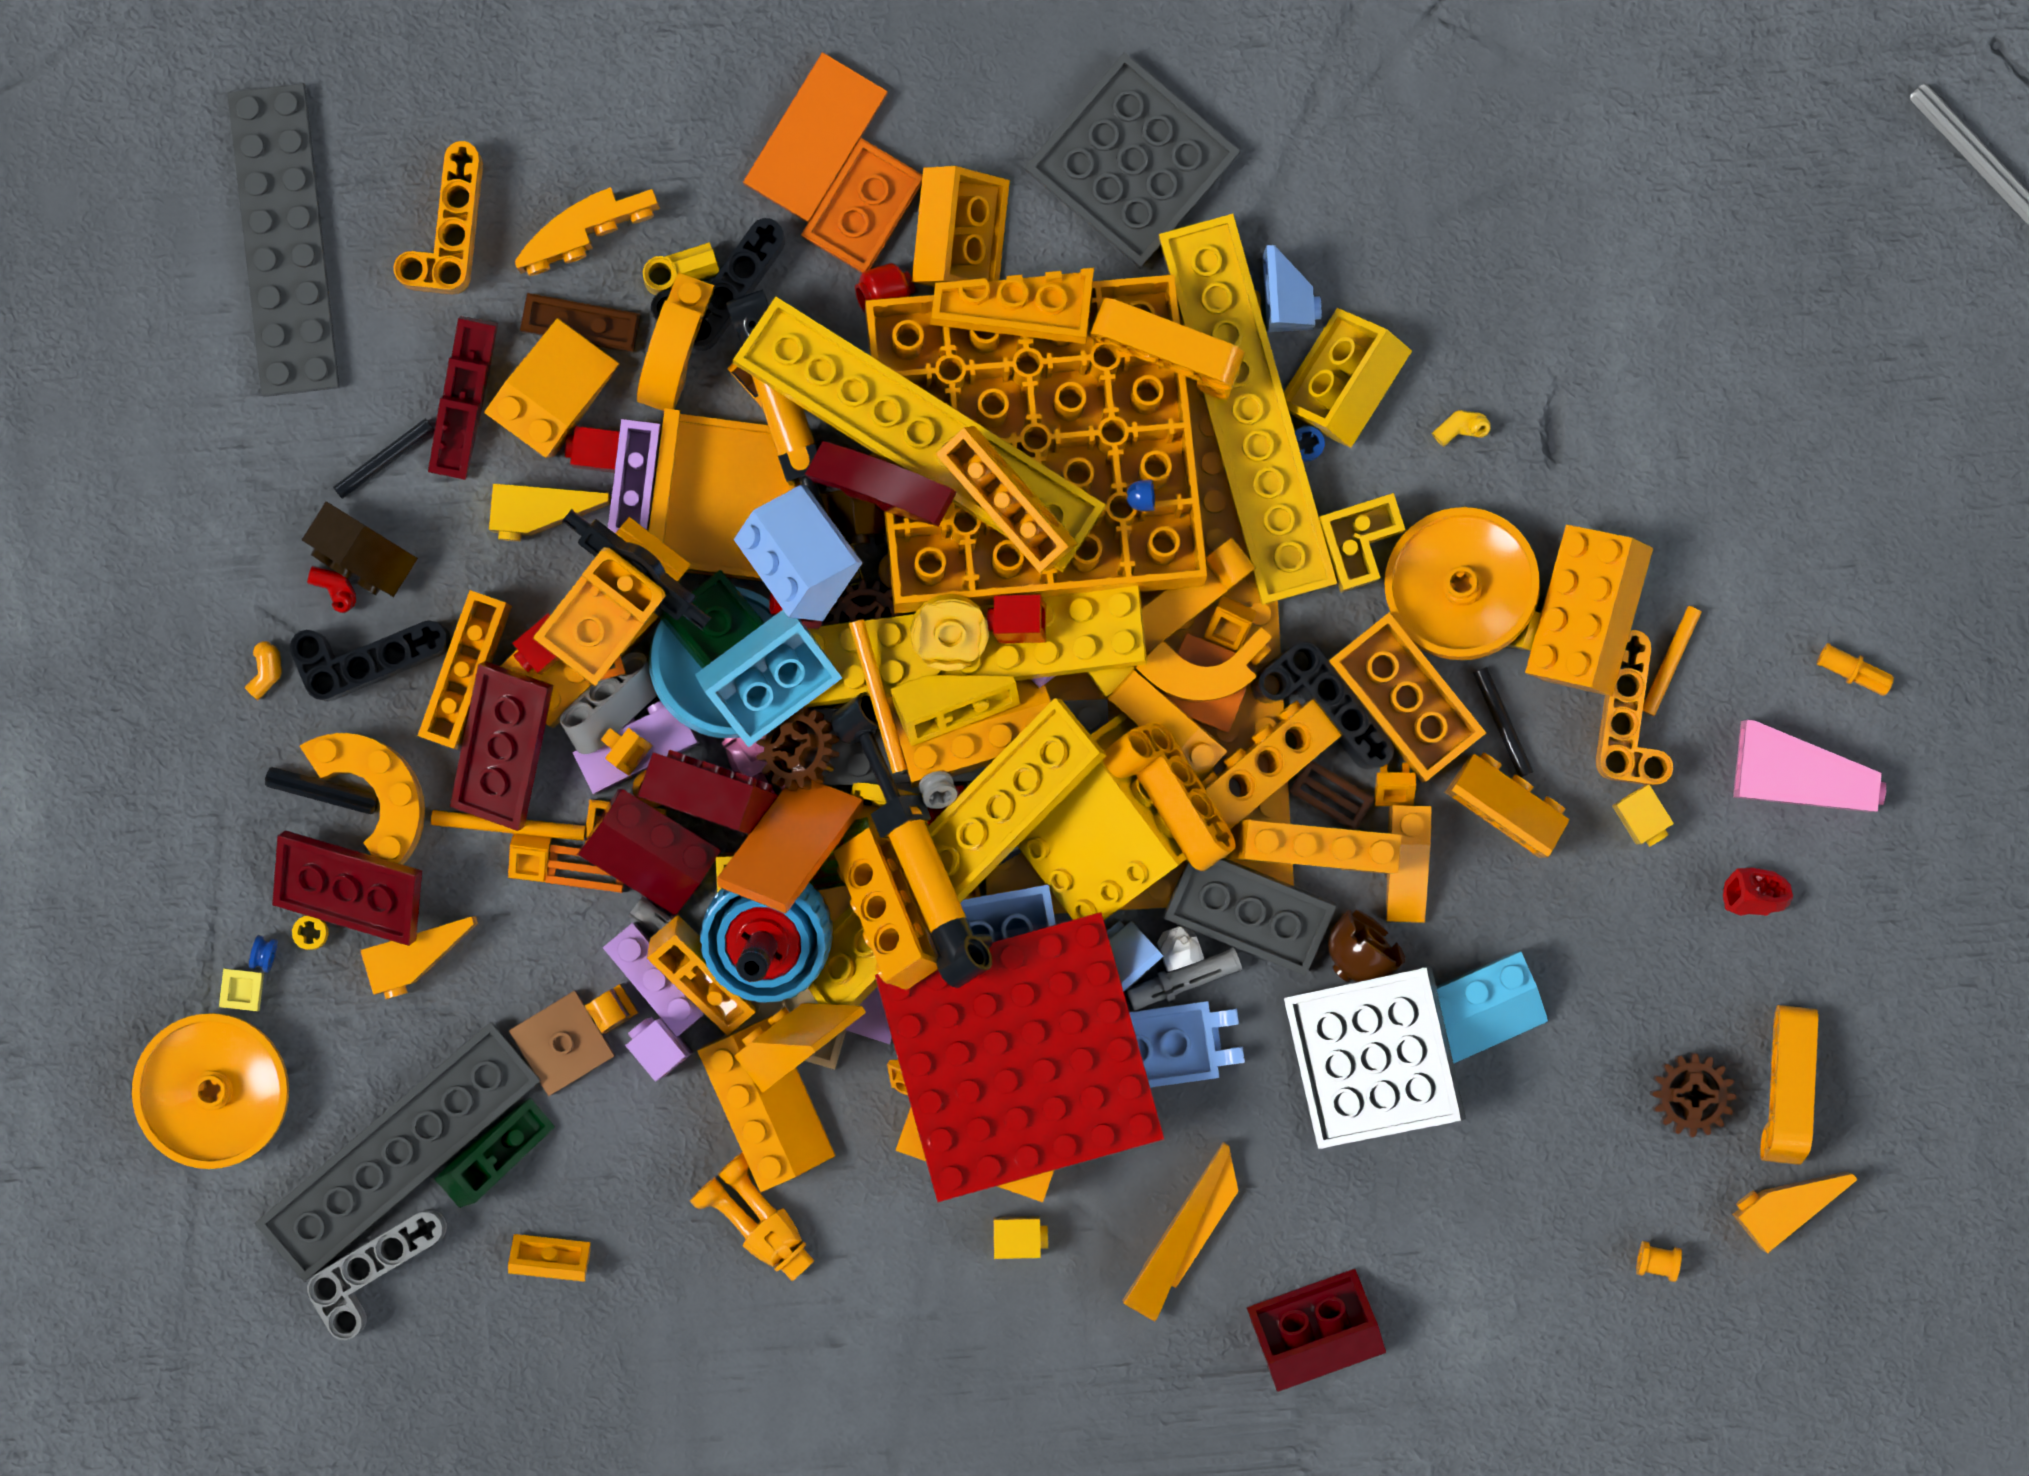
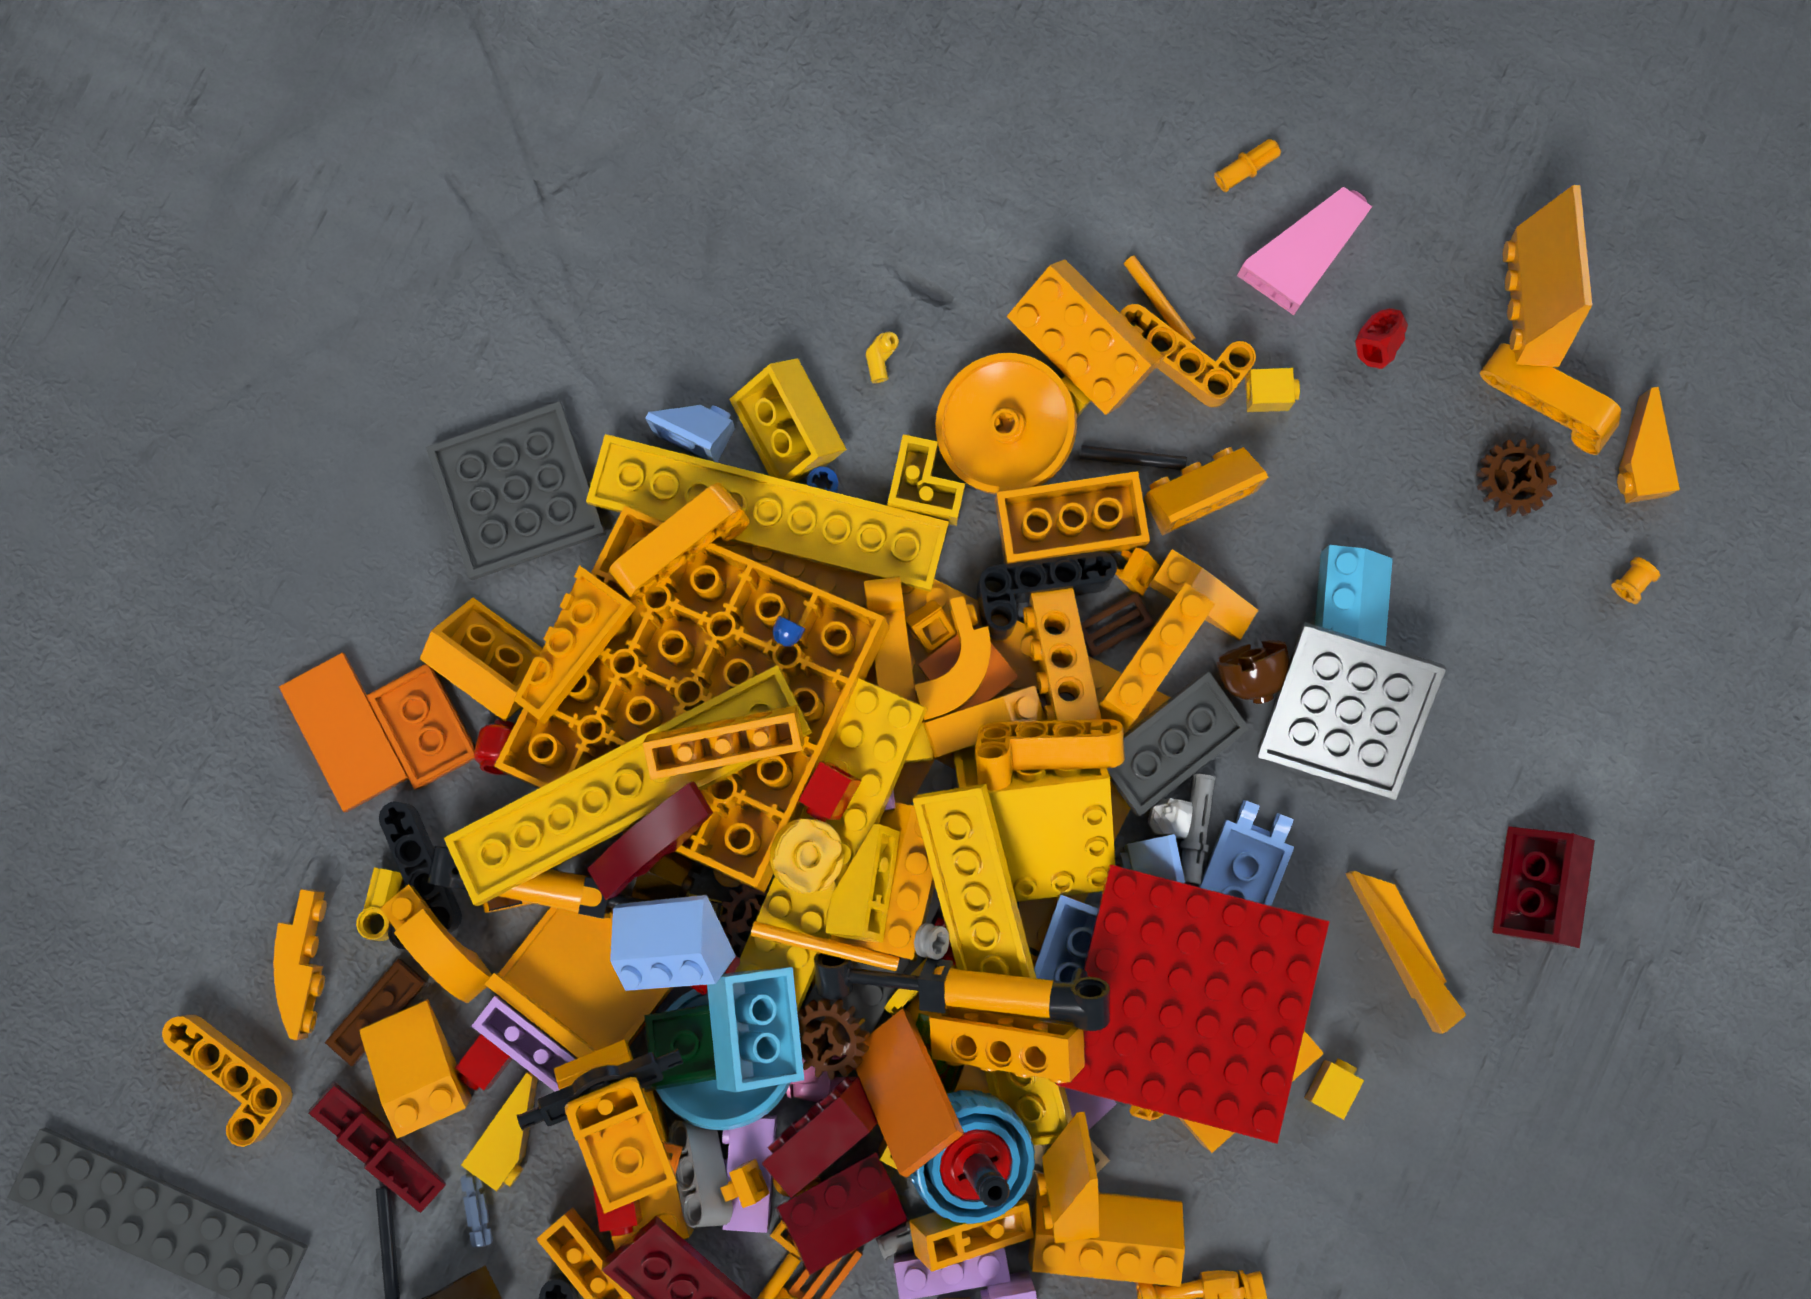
camera: 55 degrees left, 5 degrees down
(459, 520) = (476, 1211): none -> sand blue axle
(1890, 1014) = (1548, 281): none -> light orange slope

